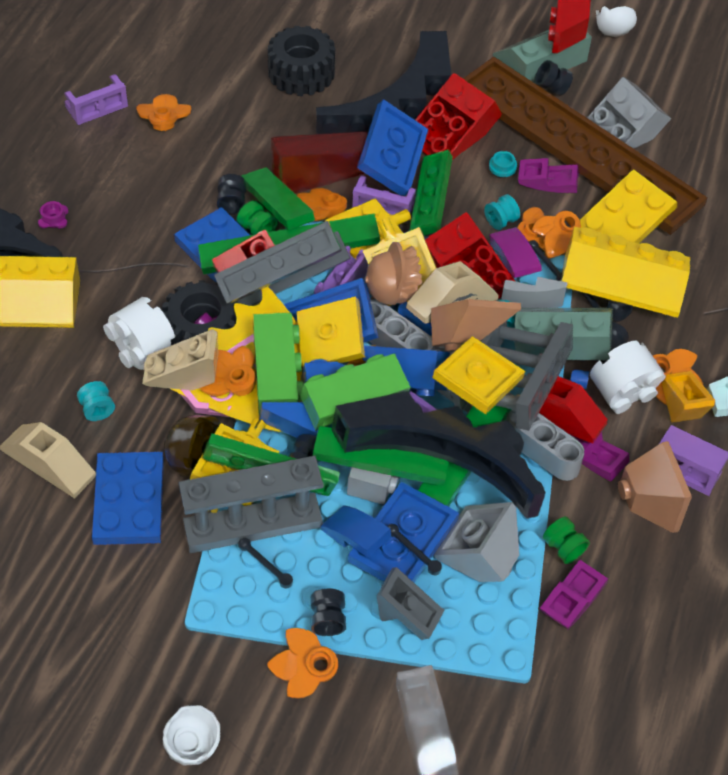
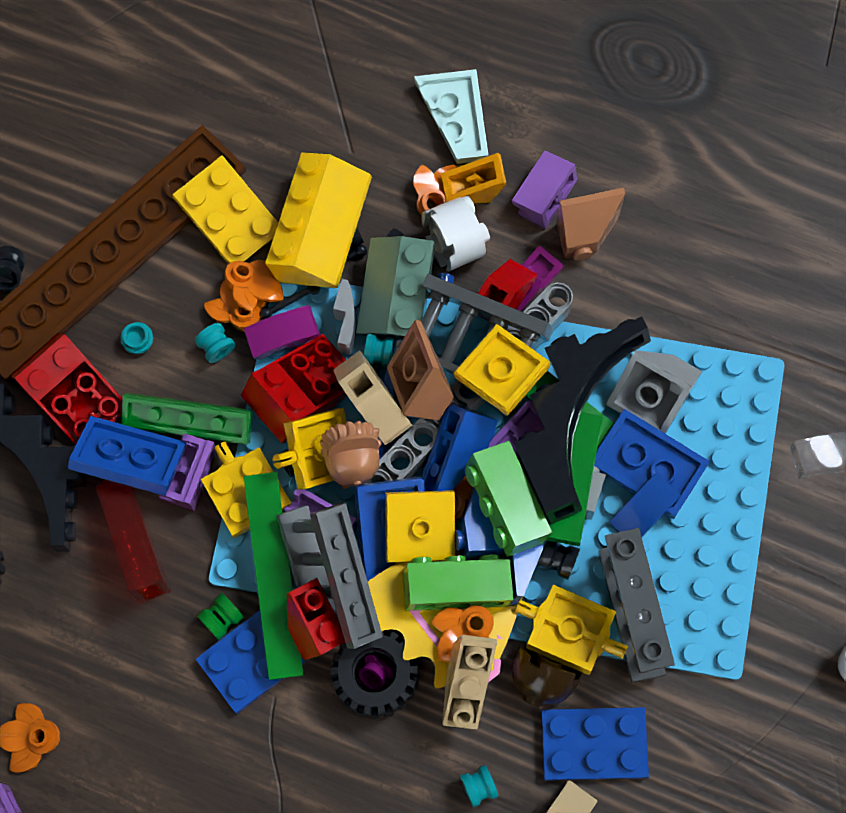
camera: 85 degrees left, 20 degrees up
(139, 332) = (399, 739): white brick -> none
(231, 193) = (177, 647): black wheel -> none
(245, 456) = (583, 590): green tile -> none
(278, 198) = (195, 591): green tile -> none
(285, 579) = (693, 580): black hinge -> none
(298, 663) = (778, 569): orange plate -> none
(324, 203) = (193, 550): orange plate -> none
(328, 614) = (737, 536): black wheel -> none
(405, 601) = (731, 460): dark grey slope -> none
(434, 566) = (688, 435): black hinge -> none
(542, 176) = (155, 289): magenta slope -> none
(566, 540) = (644, 306): green wheel -> none
(574, 594) = (694, 313): magenta slope -> none
(629, 114) = (71, 192): light grey slope -> none

